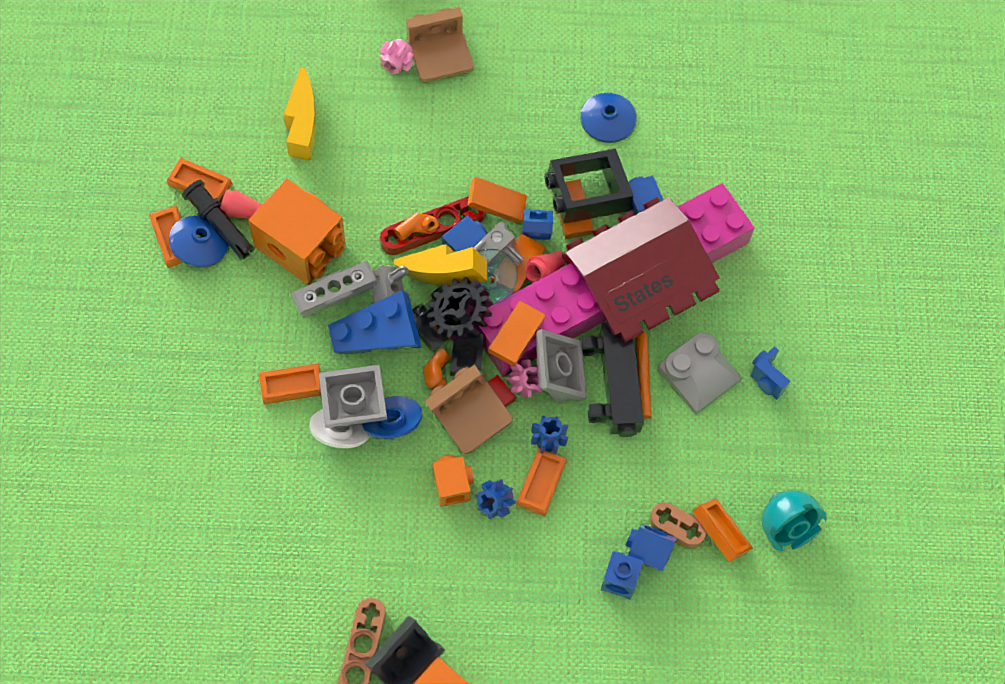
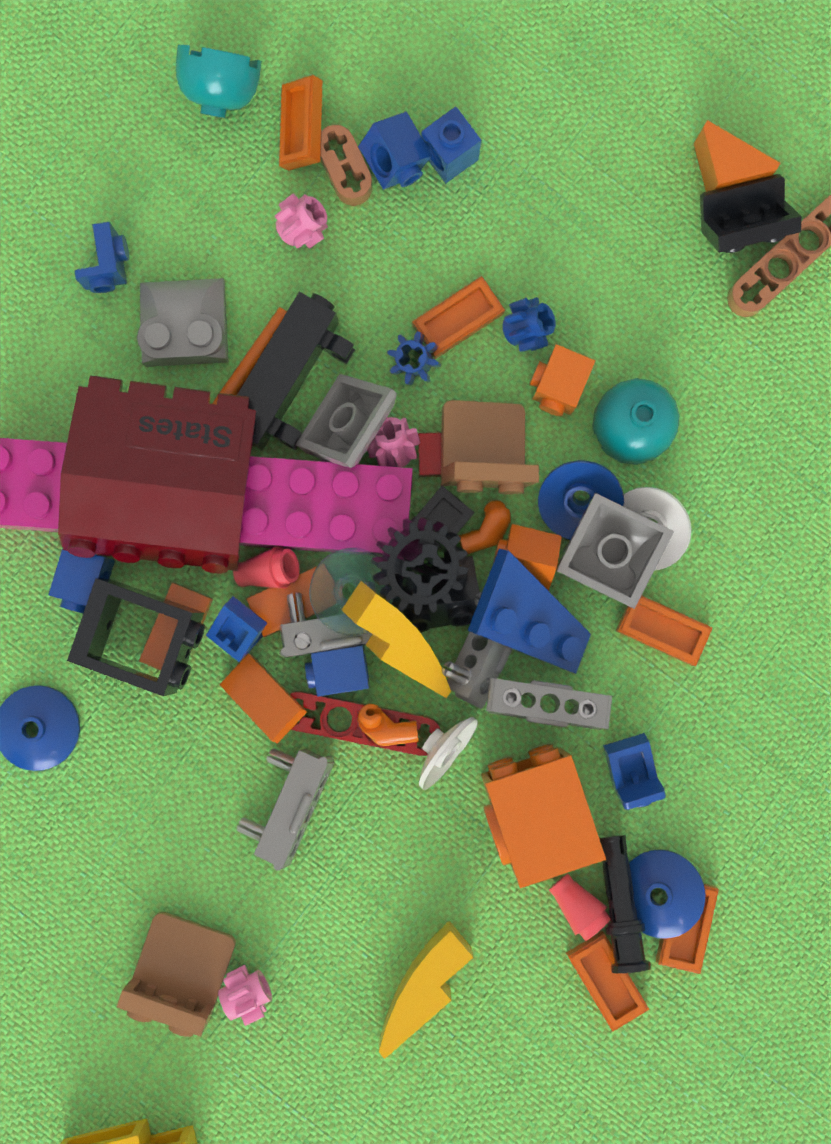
camera: 140 degrees left, 20 degrees up
(257, 292) = (634, 772): none -> blue bracket
(376, 232) = (444, 749): none -> white dish
(390, 490) = (636, 421): none -> teal cylinder
(401, 366) = (535, 550): none -> orange brick
(438, 159) = (293, 807): none -> light grey piece
(517, 333) = (374, 486): orange tile -> none
(675, 469) = (301, 221): none -> bright pink gear

